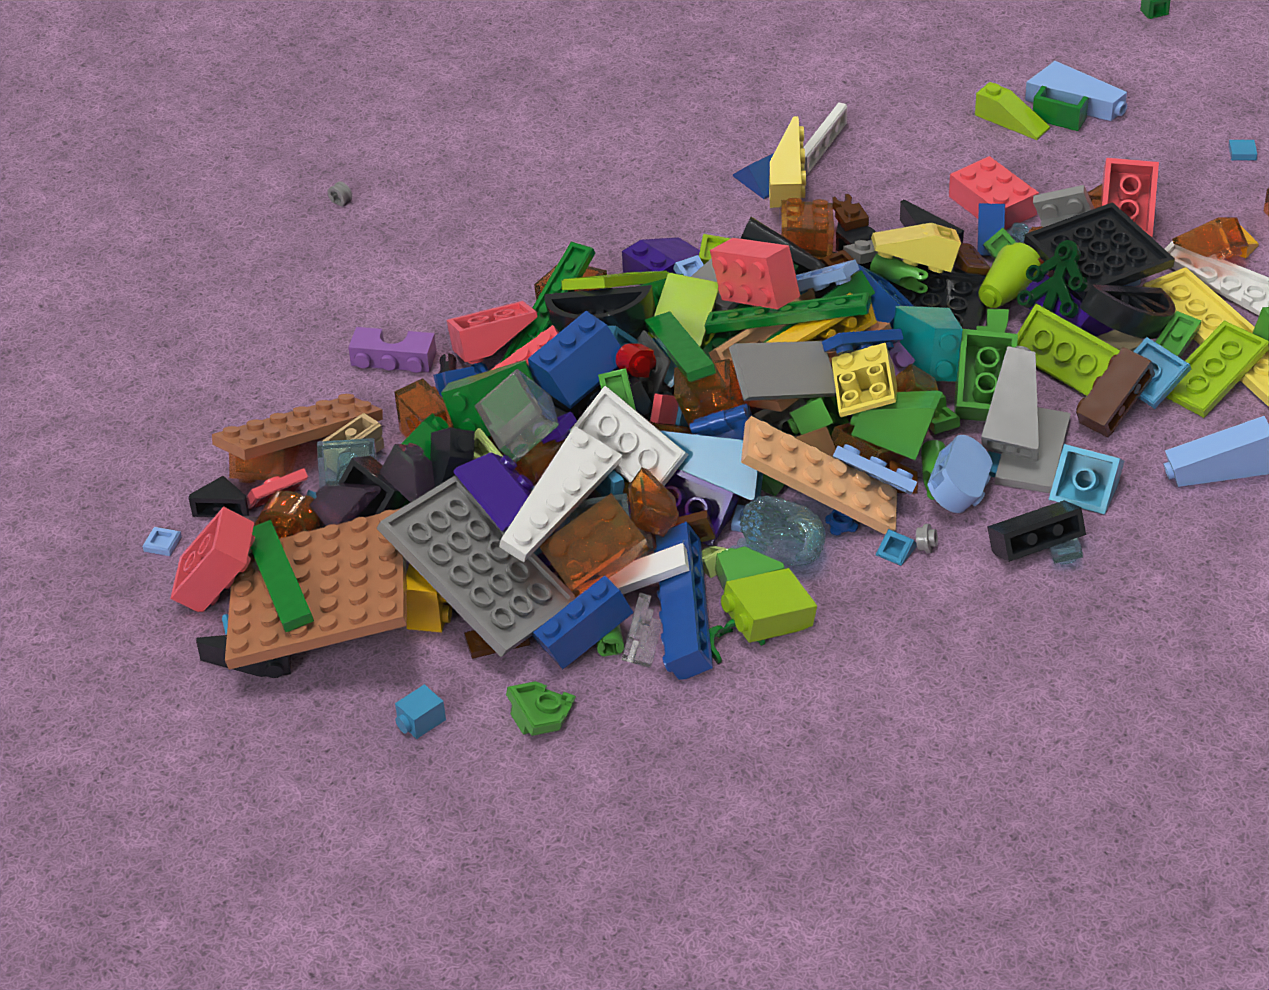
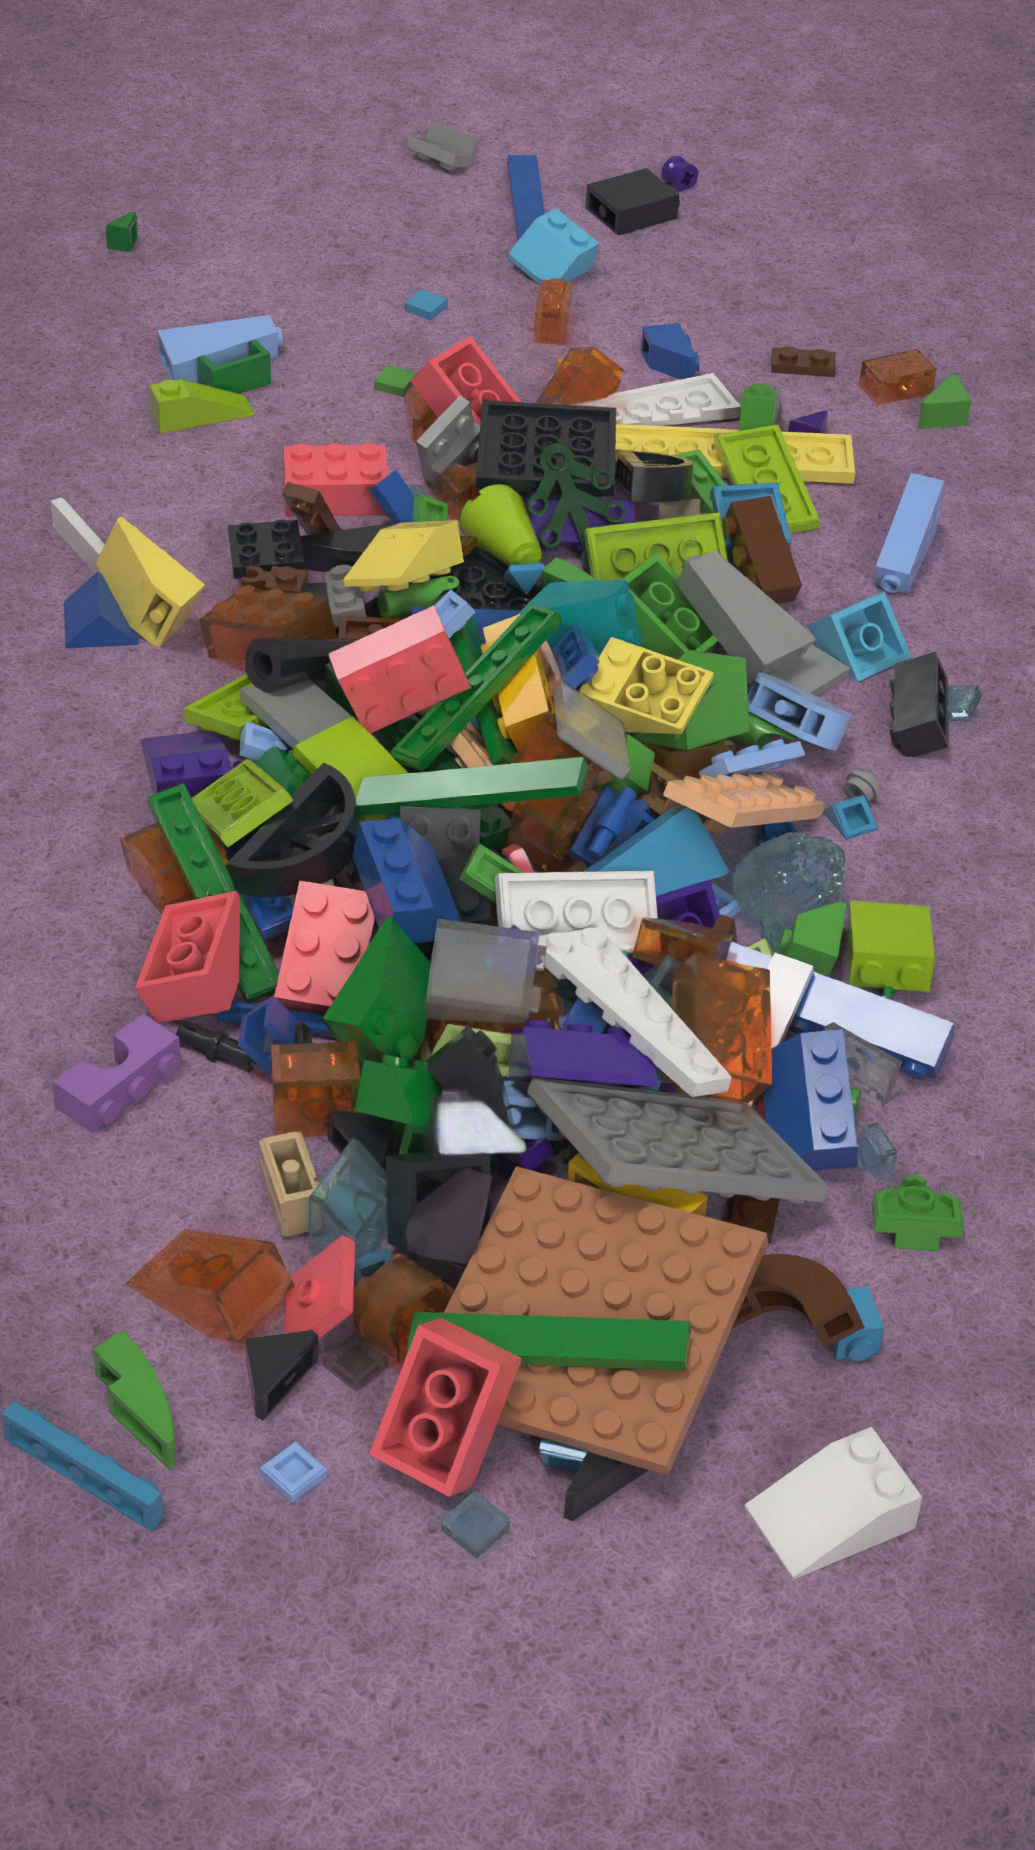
camera: 65 degrees left, 0 degrees up
(108, 468) = (83, 1466): none -> dark azure plate
(166, 620) = (475, 1524): none -> clear light blue plate
(167, 462) = (136, 1395): none -> bright green slope
(276, 759) = (836, 1504): none -> white slope
(293, 427) = (224, 1220): nougat plate -> none
(405, 672) = (803, 1288): none -> reddish brown arch
(575, 670) = (876, 1152): none -> clear light blue plate
(636, 359) = (451, 835): red plate -> none
(878, 195) = (265, 546): none -> black plate
(924, 192) = (310, 509): none -> reddish brown plate
(972, 306) = (524, 575): none -> dark azure slope

